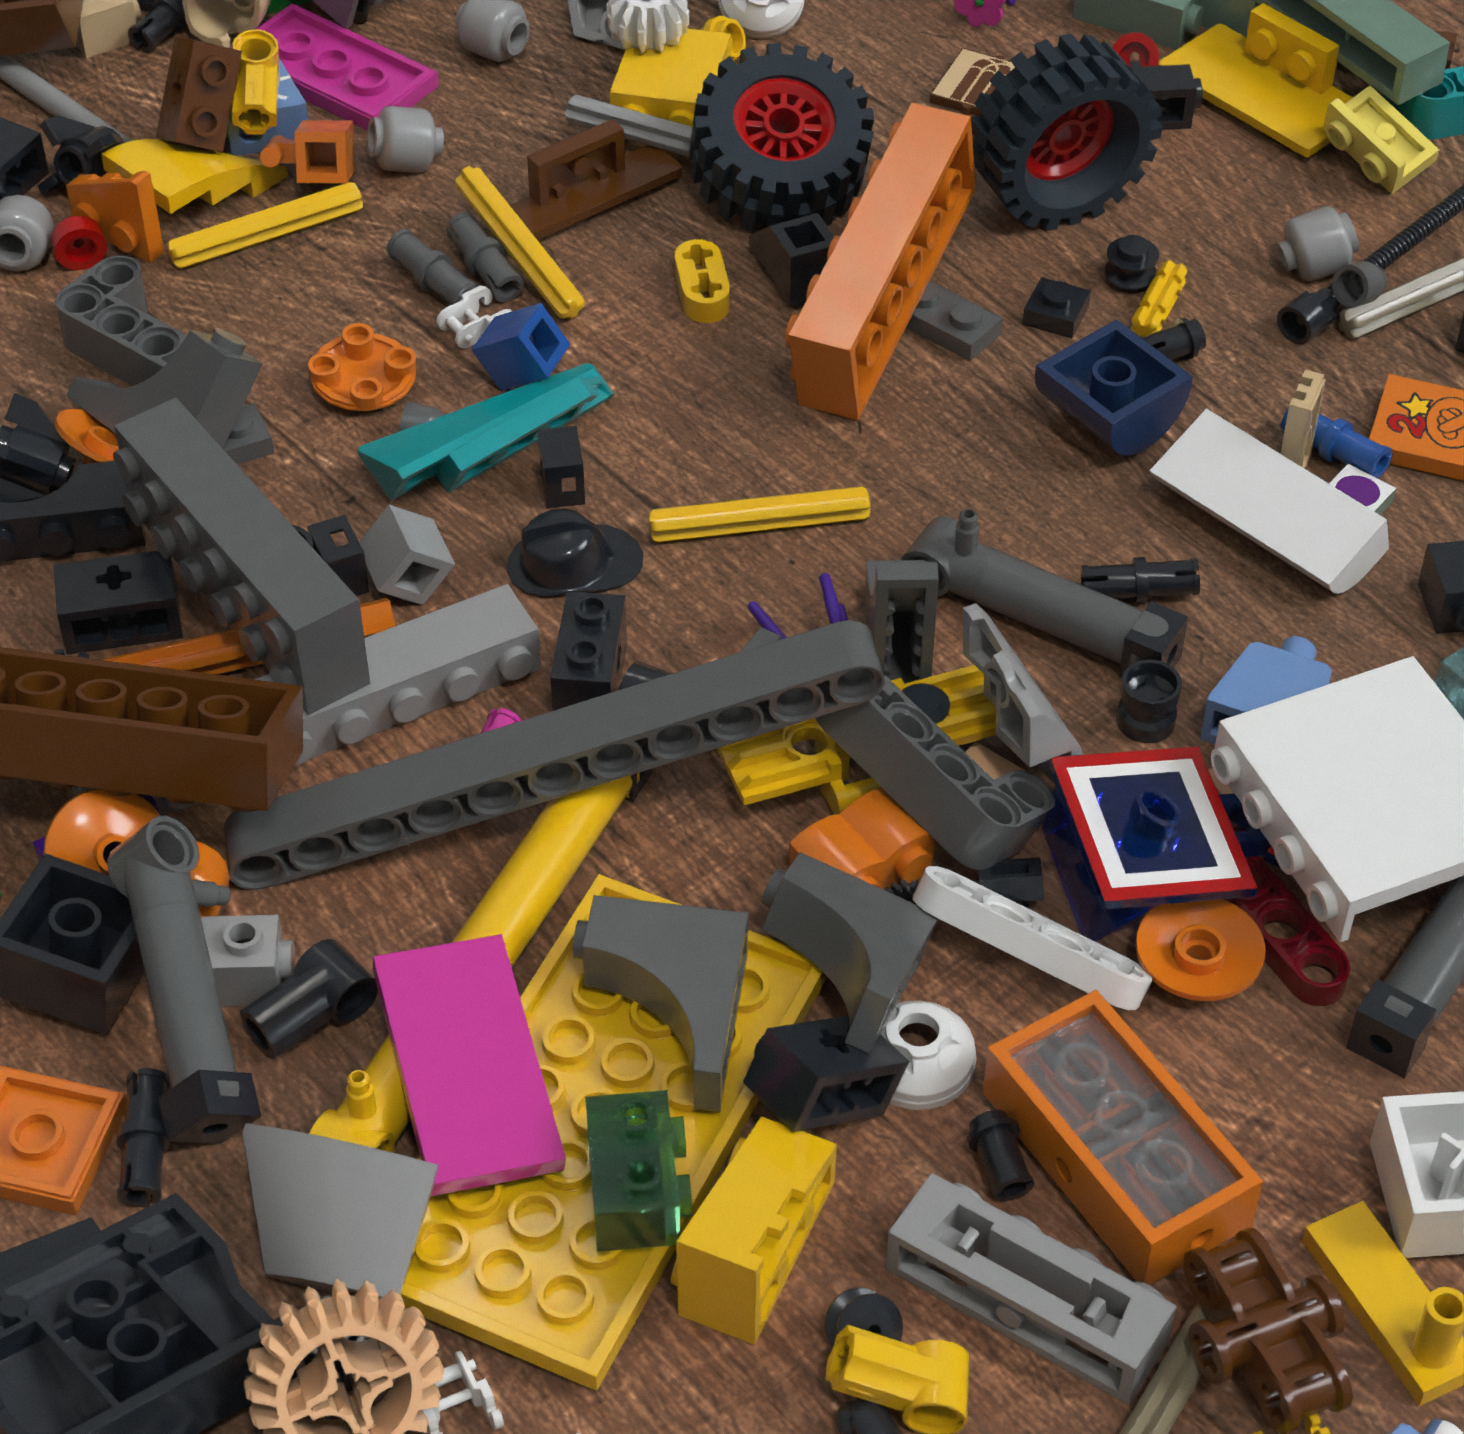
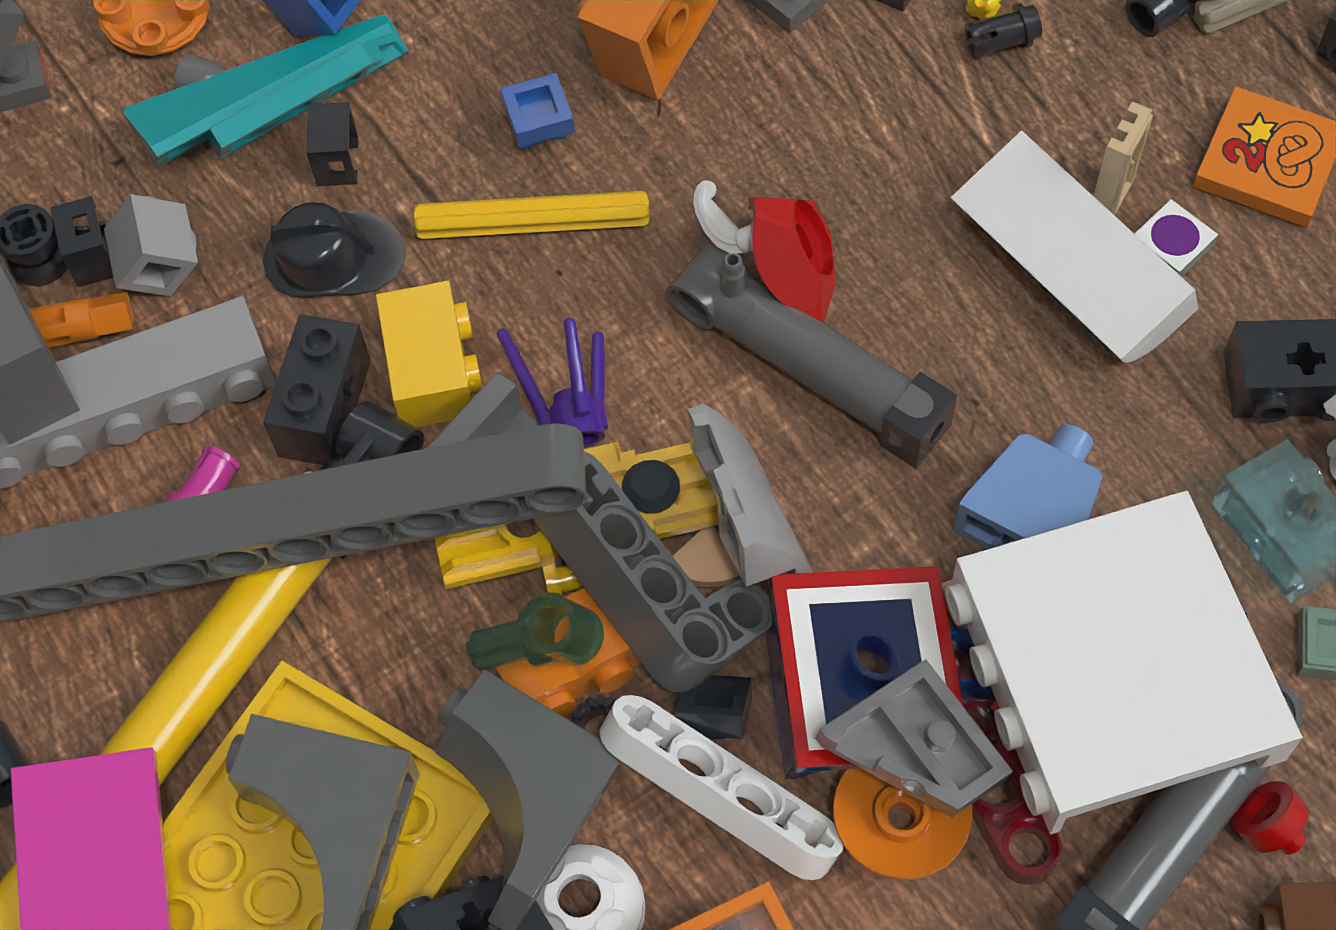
camera: 10 degrees right, 15 degrees up
(684, 617) = (426, 353): none -> yellow brick
(752, 428) = (537, 110): none -> blue tile
(843, 819) = (534, 636): none -> clear green axle
(902, 615) = (645, 373): dark grey arch -> none
(1008, 506) = (786, 242): none -> red hat
(1116, 387) = (930, 92): dark blue brick -> none
(1143, 579) = (920, 331): black pin -> none
(1148, 701) = (903, 474): black wheel -> none
(1211, 869) = (919, 742): none -> flat silver wing
(1339, 442) = (1166, 170): blue pin -> none

